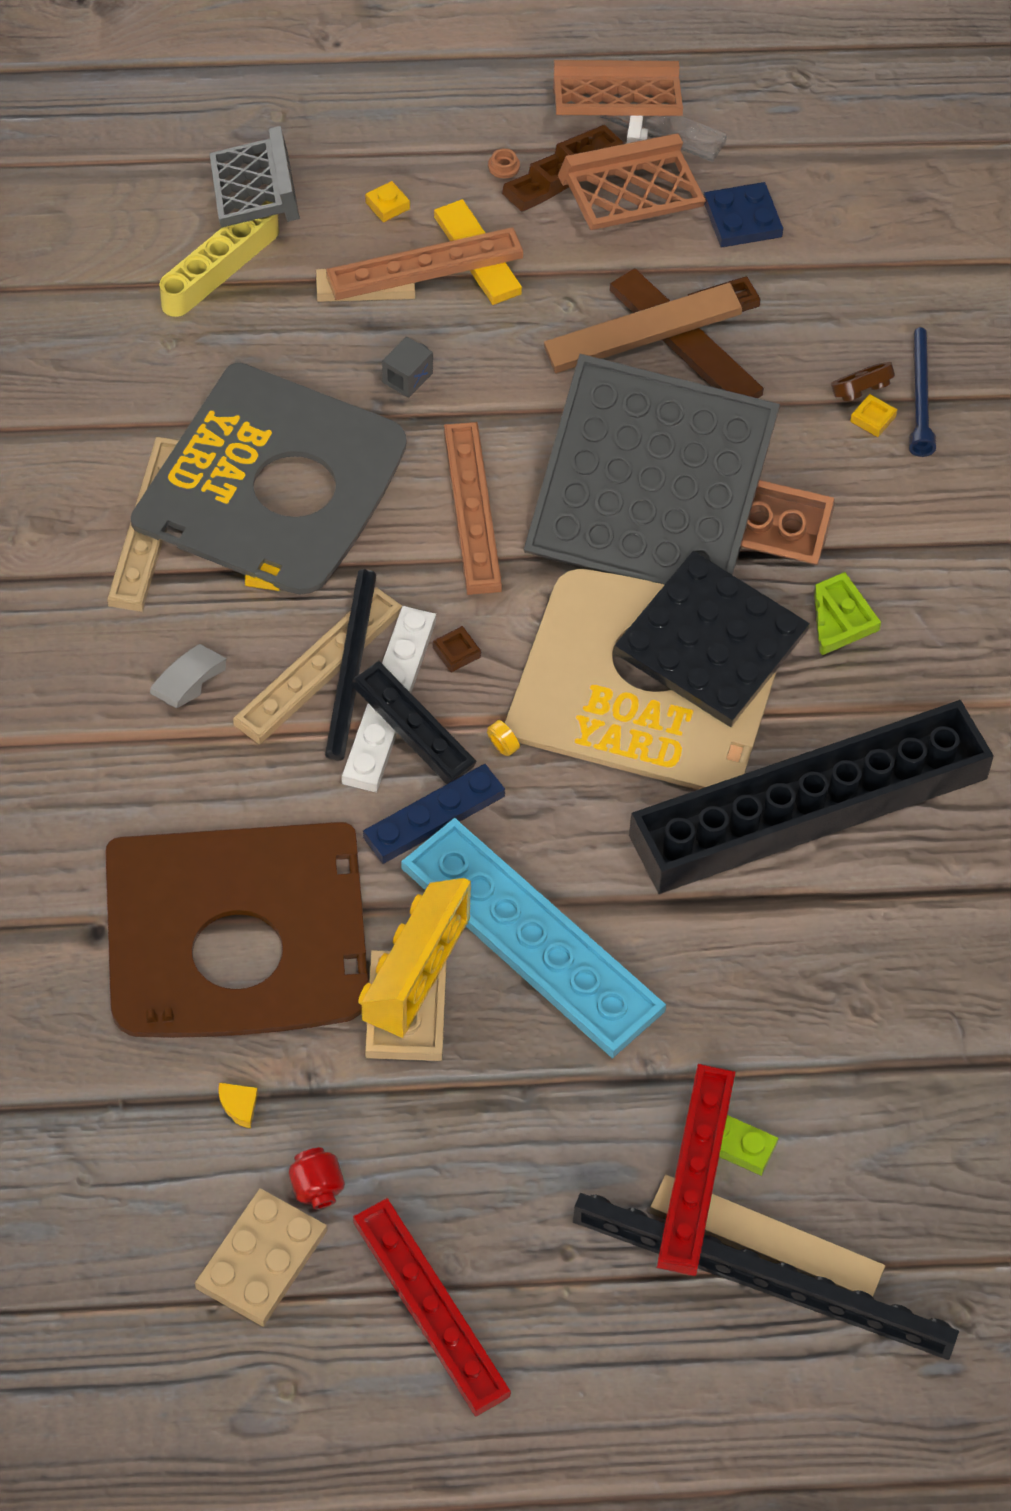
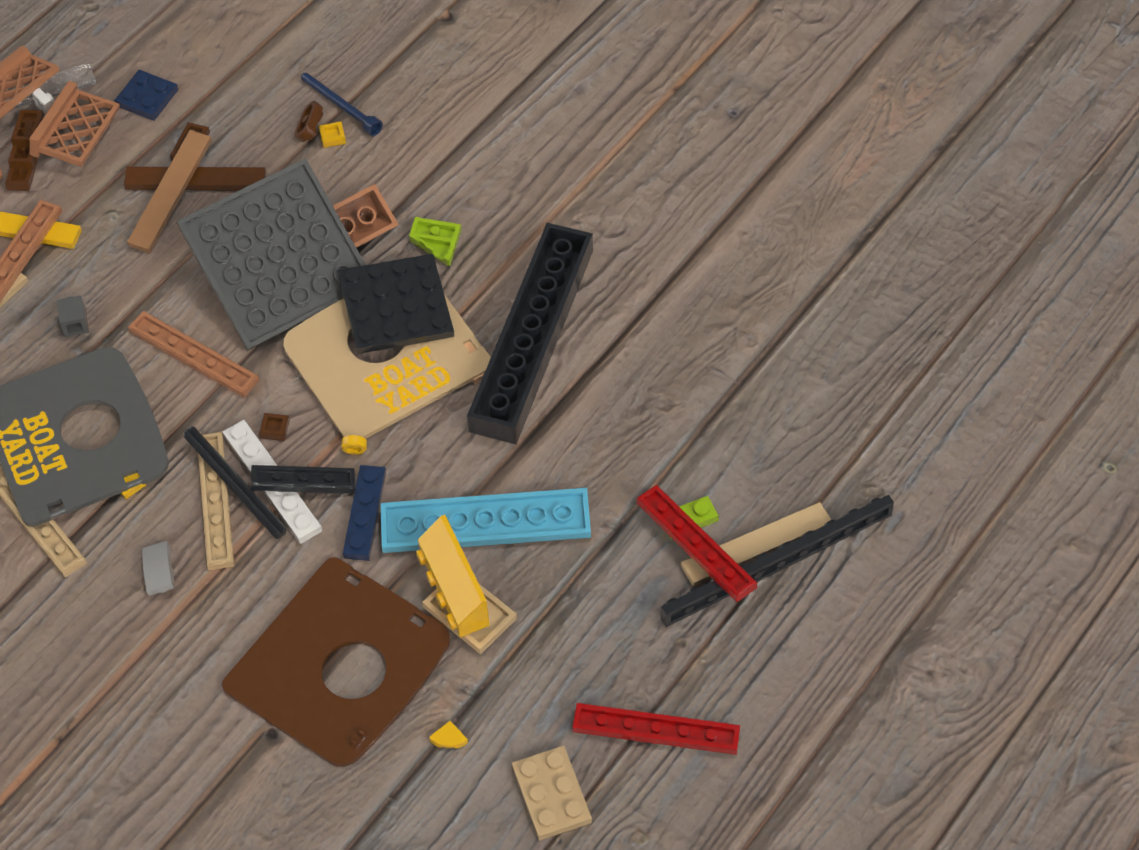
camera: 45 degrees left, 0 degrees up
(316, 1177) = (533, 729): red head -> none

